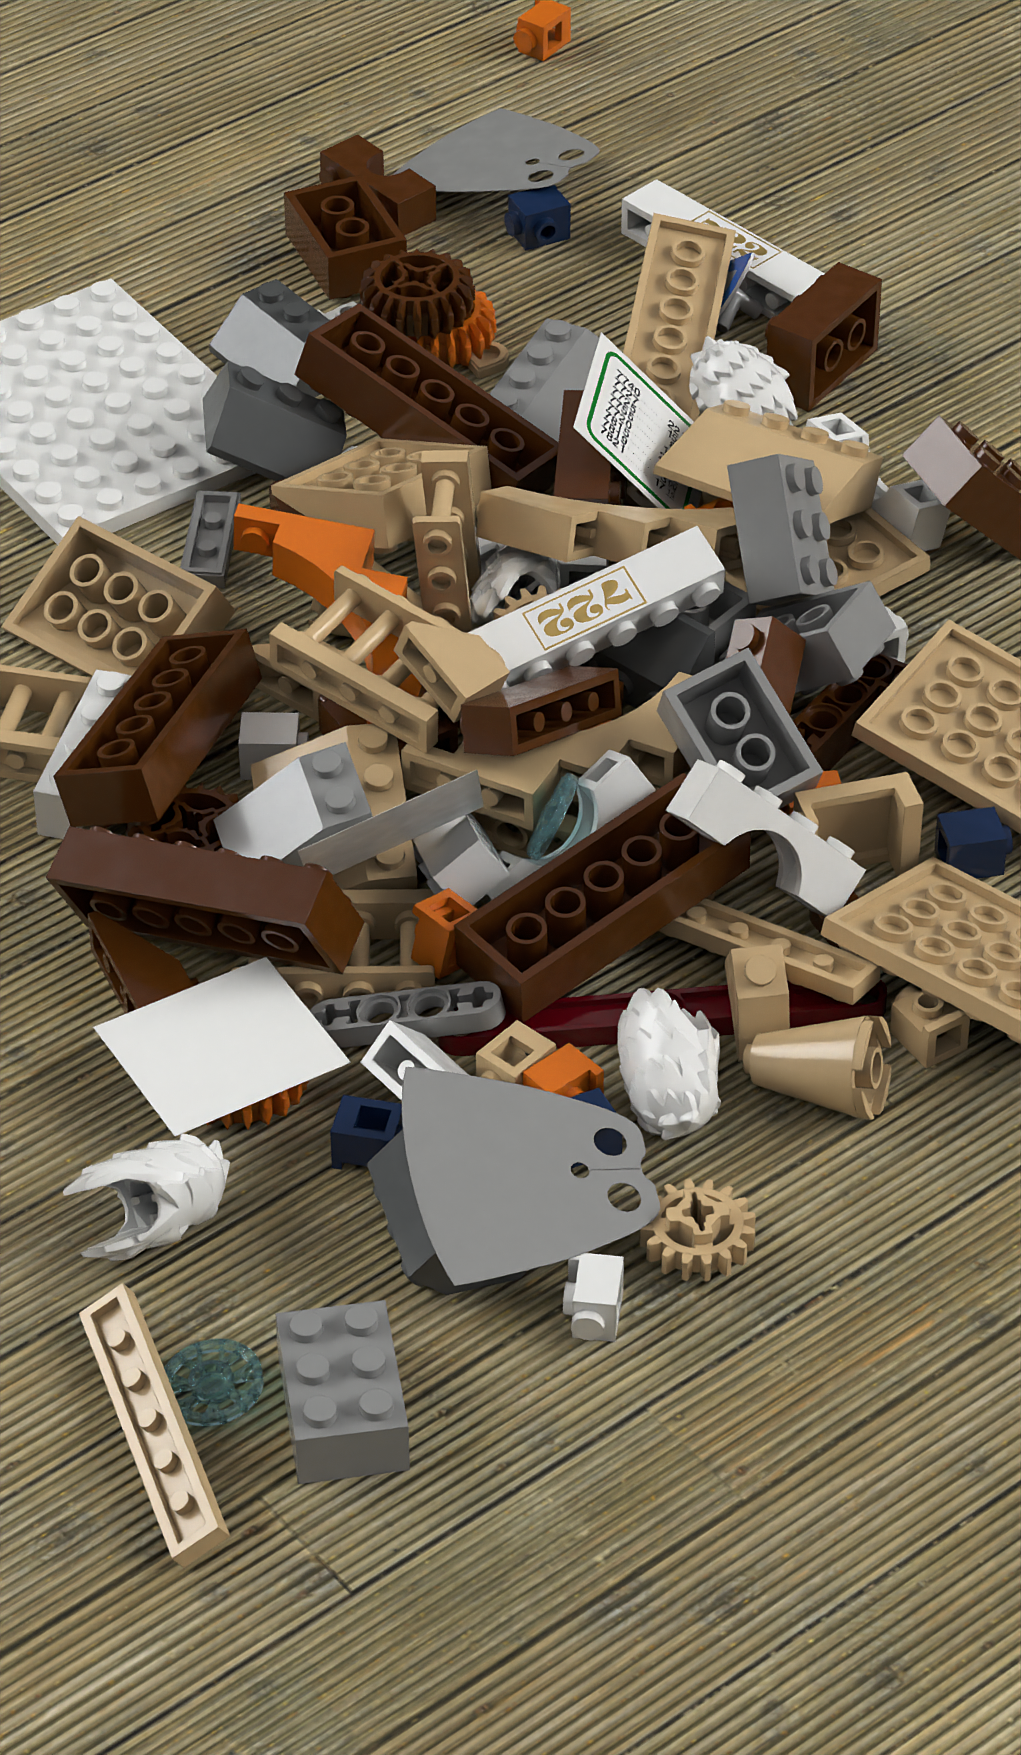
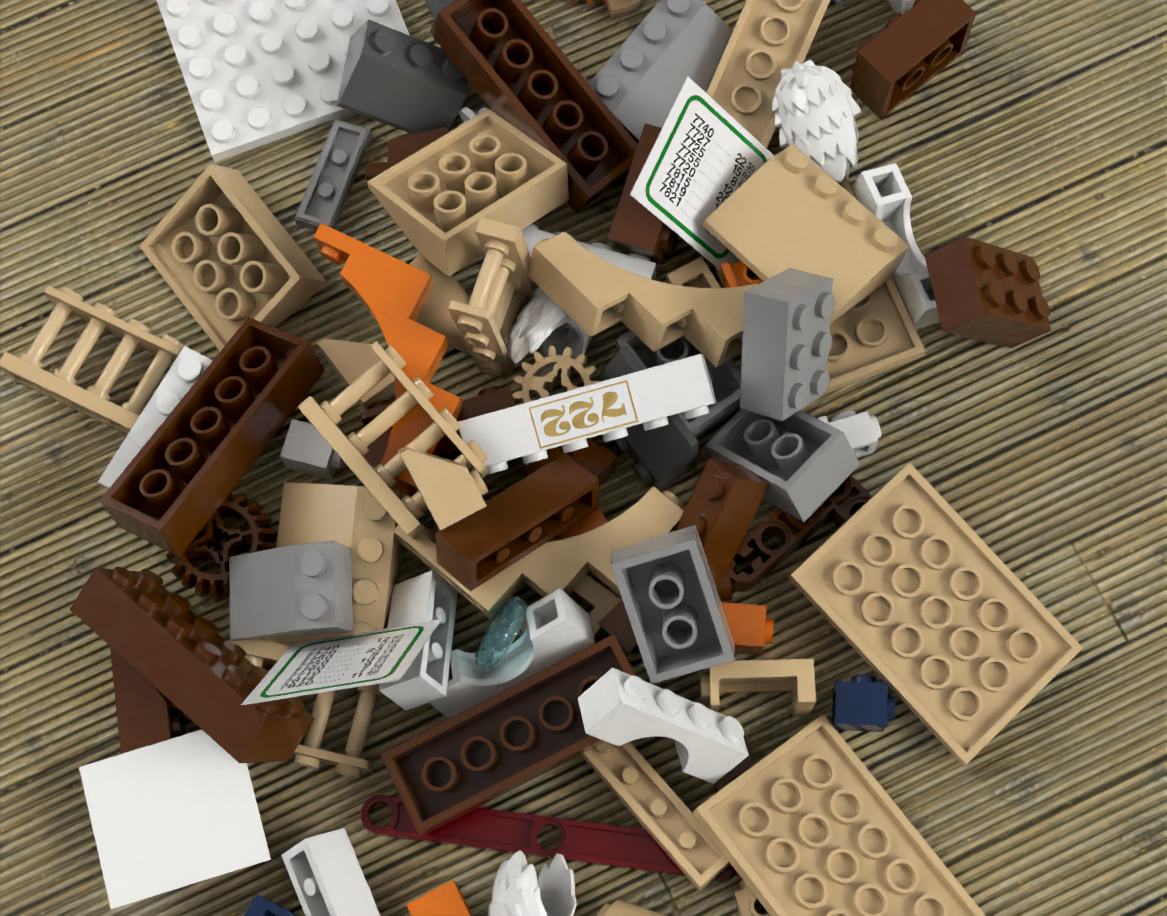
camera: 20 degrees right, 30 degrees up
(406, 1008) = (335, 803): light grey beam -> none
(435, 930) = (382, 730): orange brick -> none
(505, 1055) = (413, 861): tan brick -> none
(757, 992) = (621, 863): tan slope -> none

